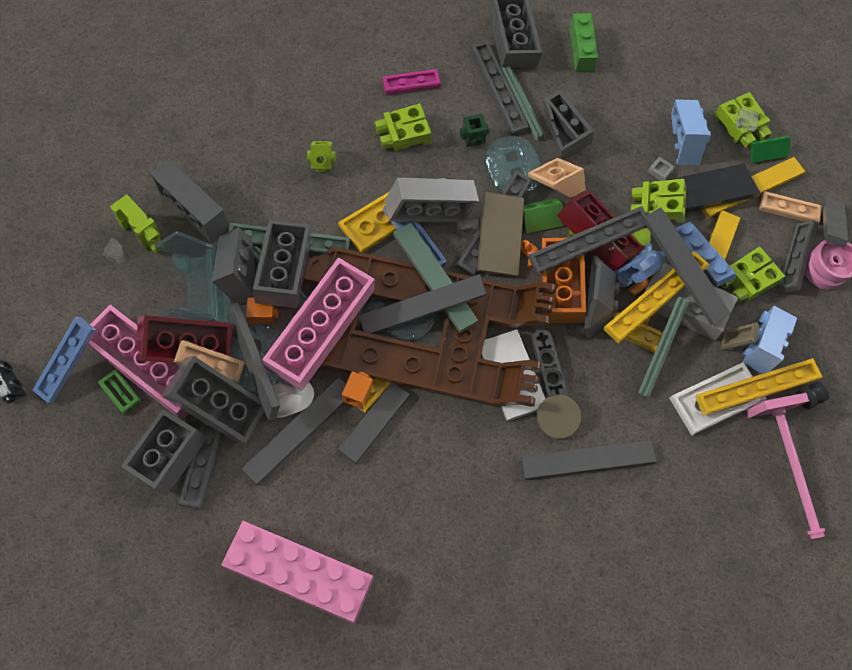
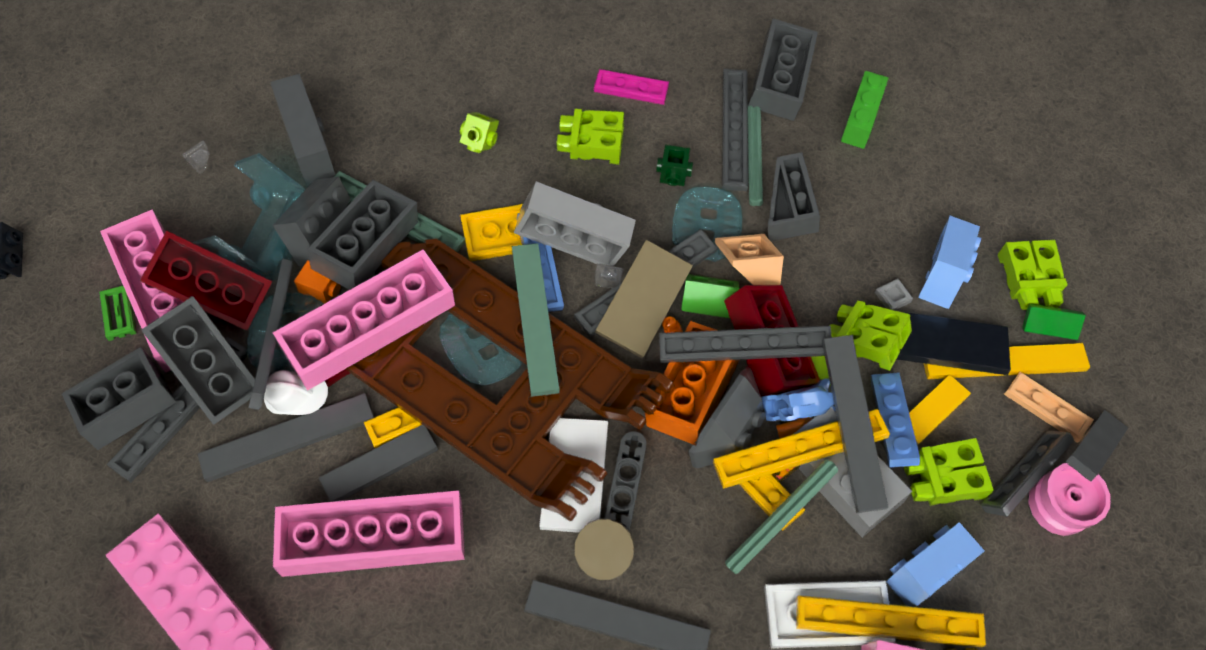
camera: 25 degrees right, 5 degrees down
(64, 359) = (72, 251): medium blue plate -> none
(130, 215) = (233, 130): lime hips -> none
(222, 363) = (224, 315): light nougat tile -> none
(357, 389) = (374, 415): orange brick -> none
(397, 471) = (368, 533): none -> bright pink brick
(423, 305) = (503, 345): dark grey tile -> none
(740, 336) = (893, 544): dark tan tile -> none
(747, 119) = (1033, 272): clear tile -> none

